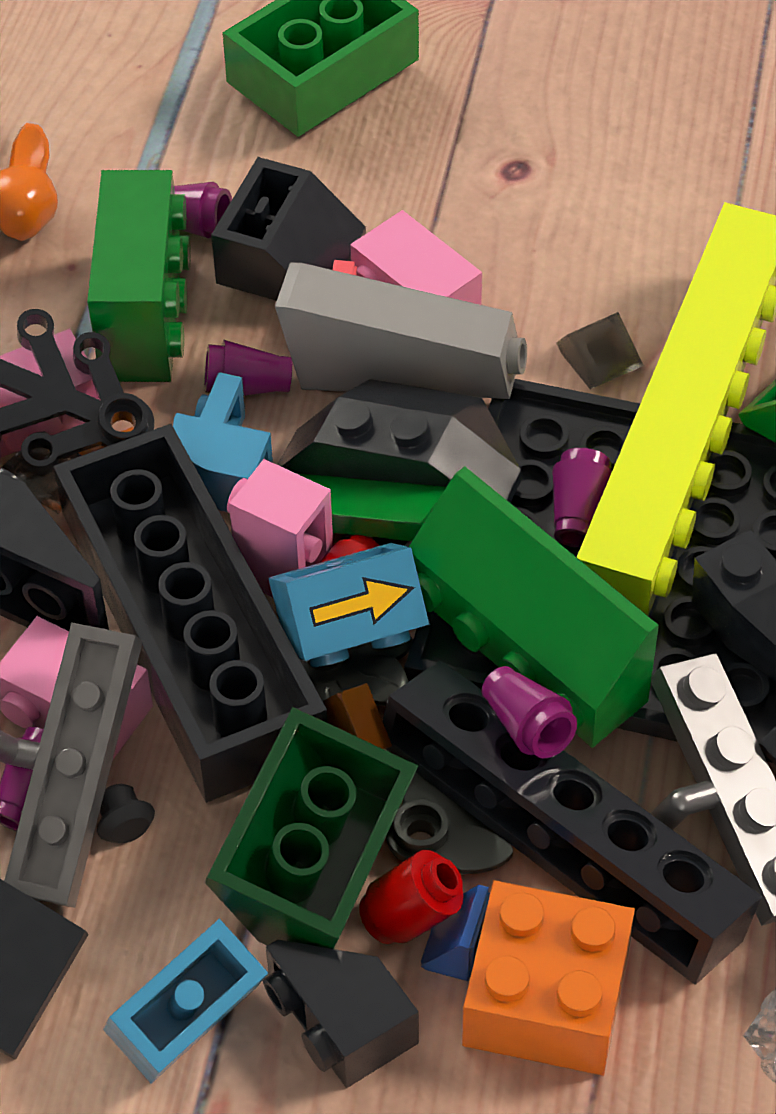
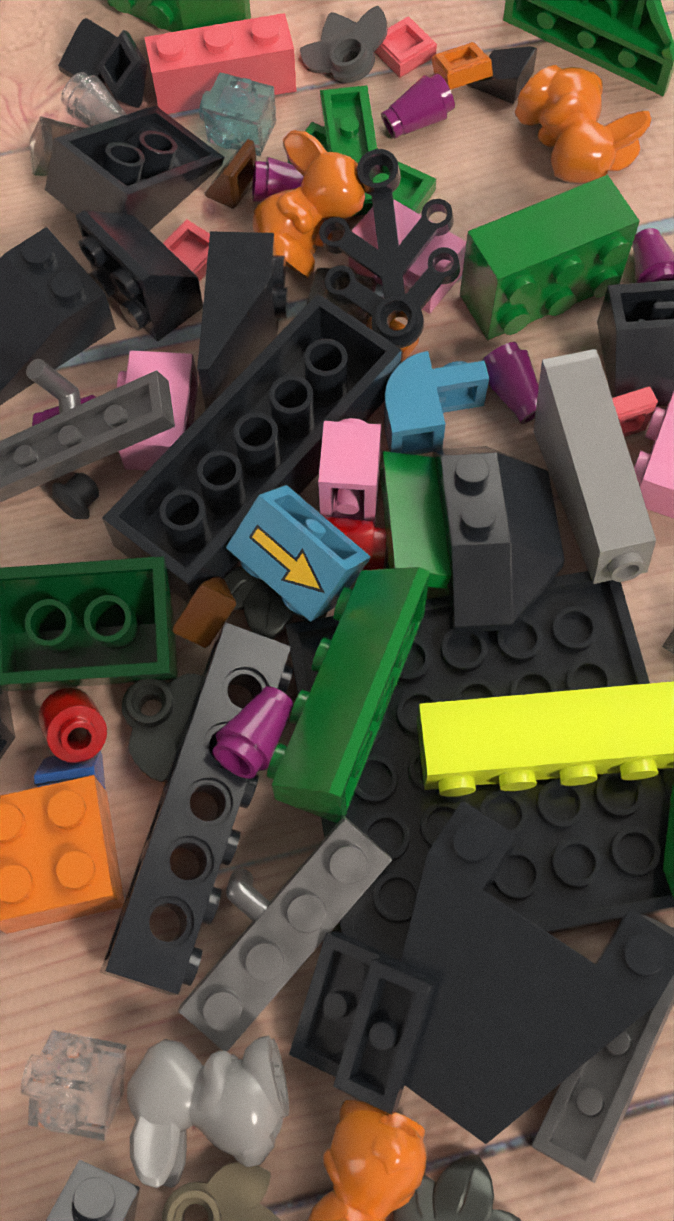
camera: 65 degrees right, 15 degrees up
(577, 492) = (509, 676): magenta cone -> none

